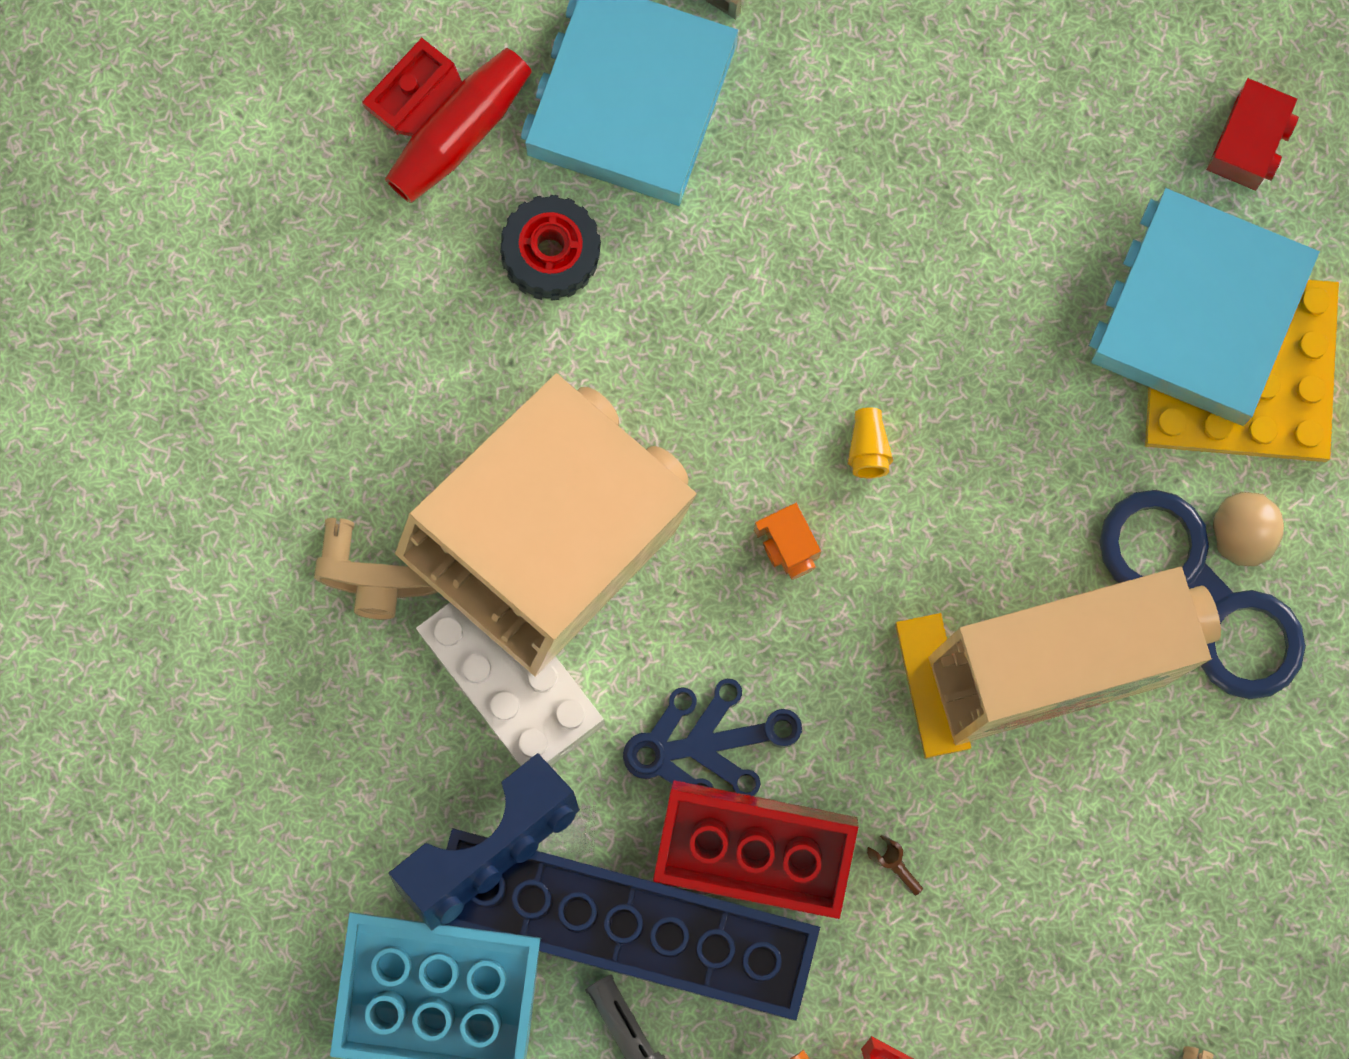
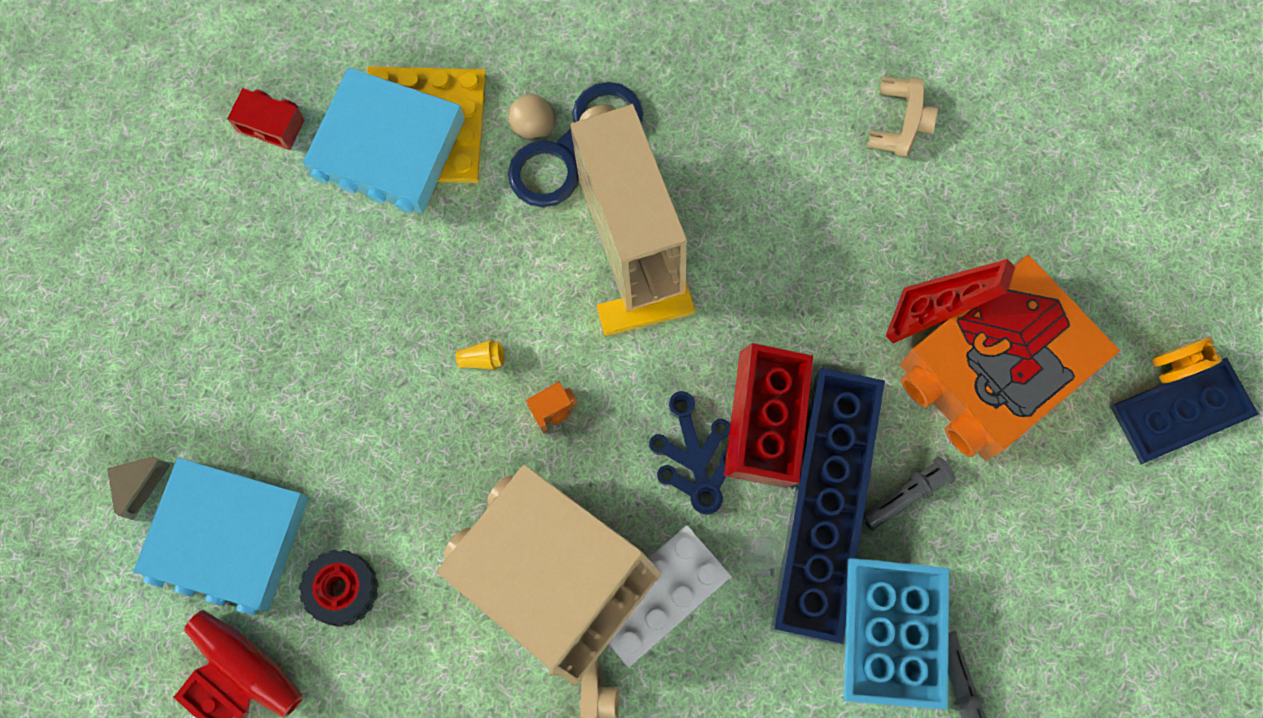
camera: 90 degrees left, 5 degrees down
(443, 880) = (818, 633): dark blue arch -> none
(893, 860) = (764, 330): reddish brown hand -> none

